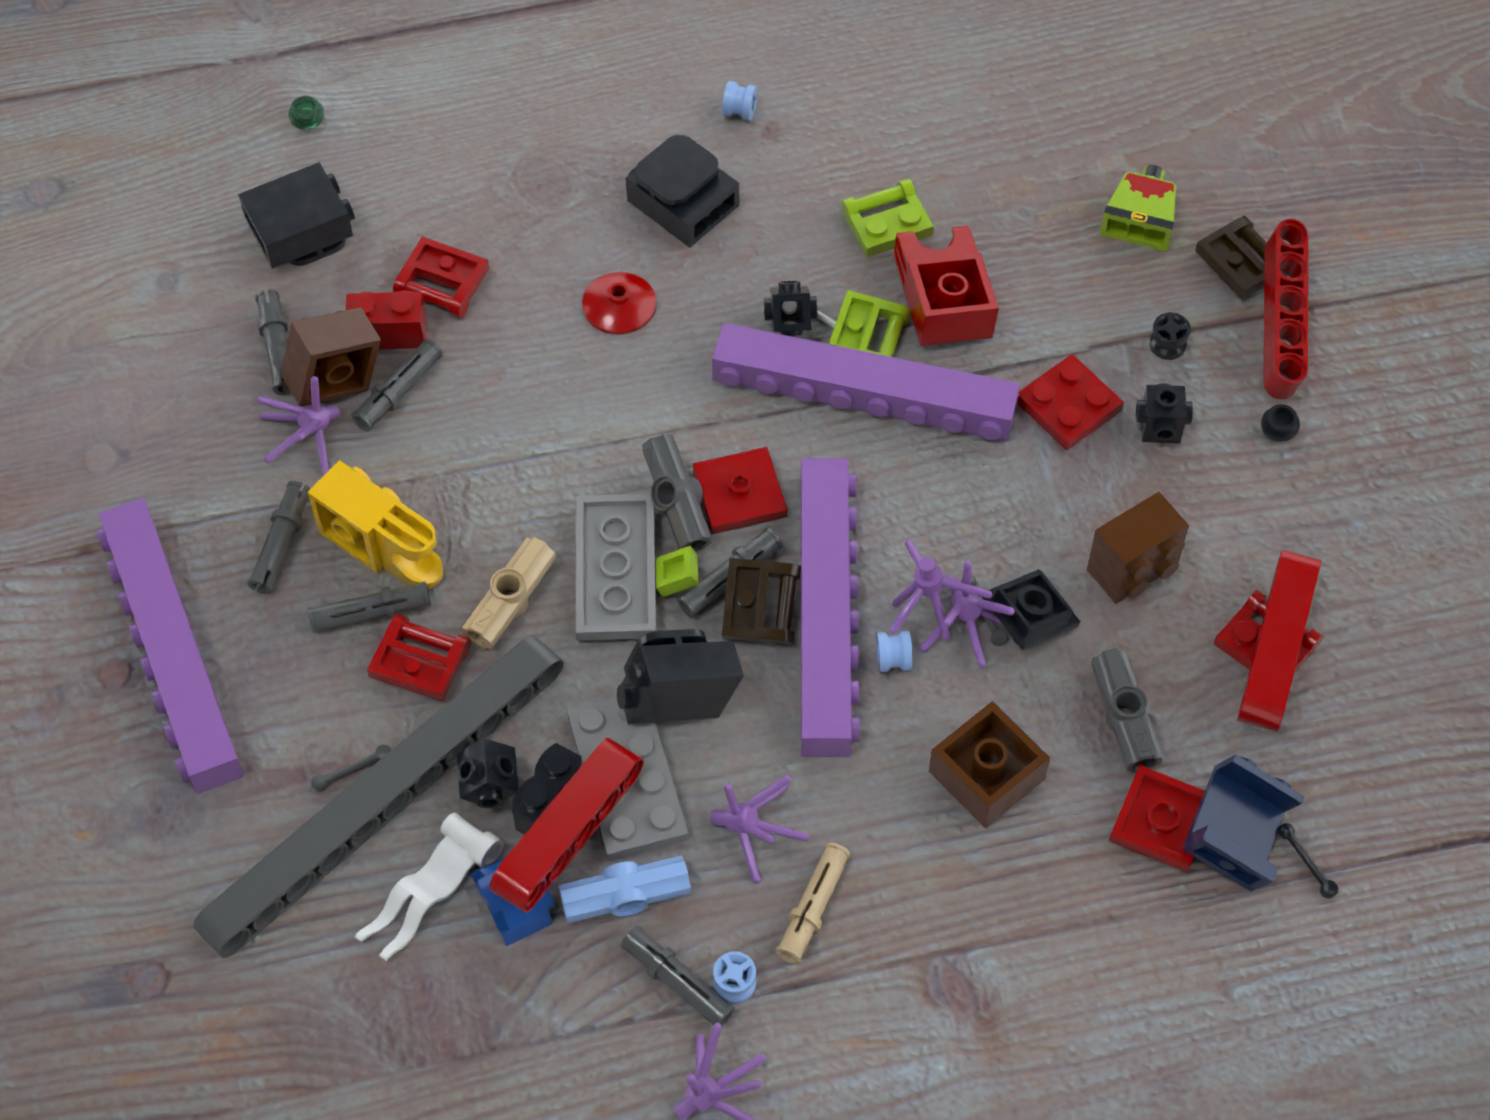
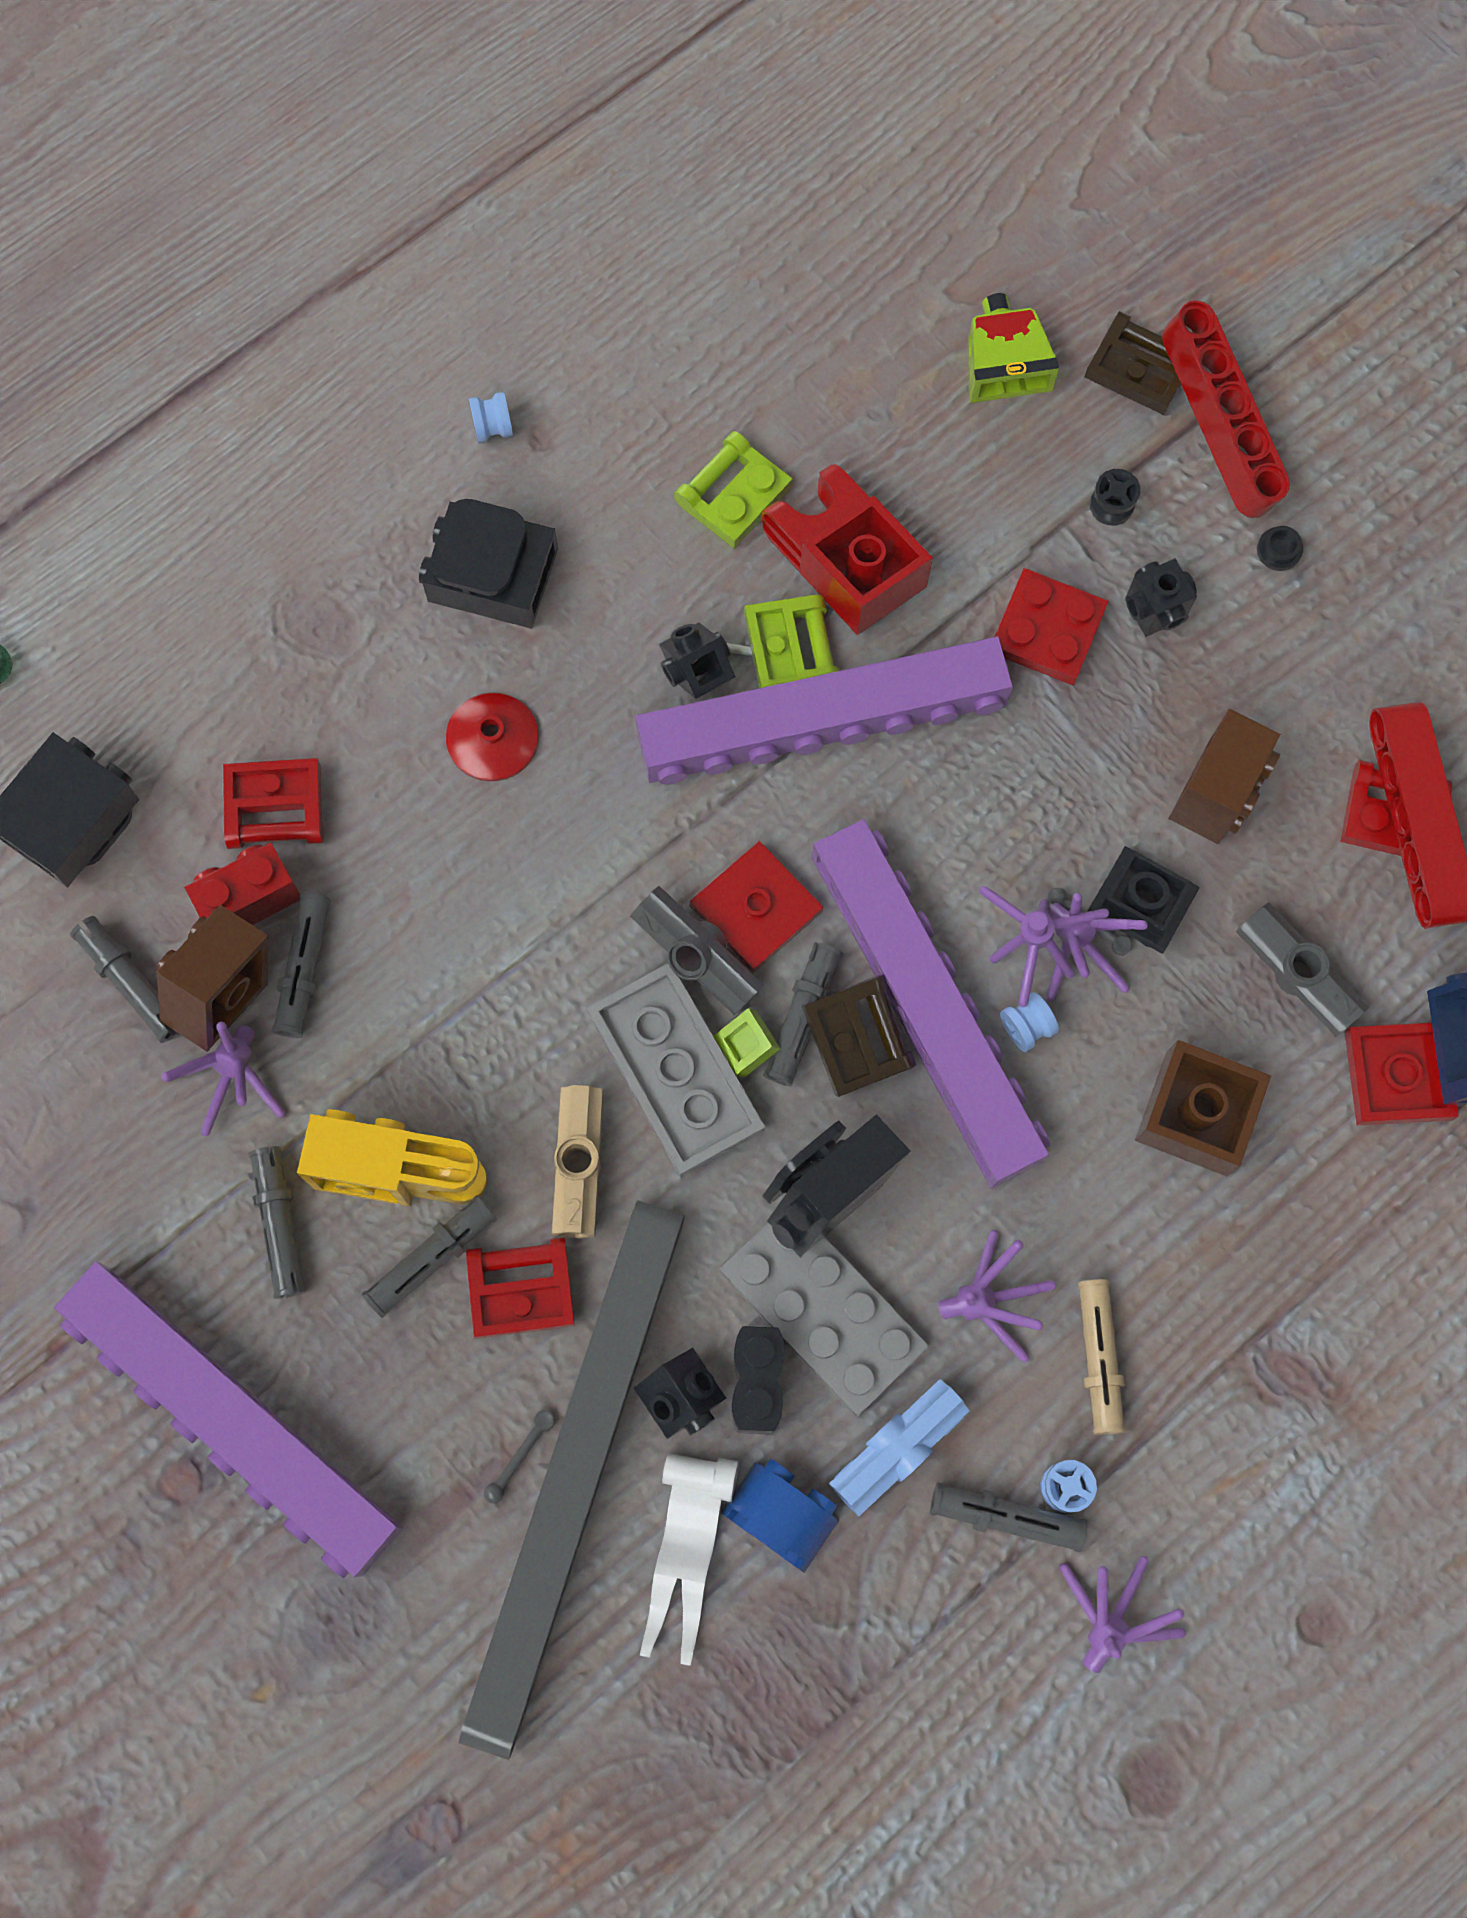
camera: 30 degrees left, 15 degrees up
(566, 825) = (810, 1419): red beam -> none

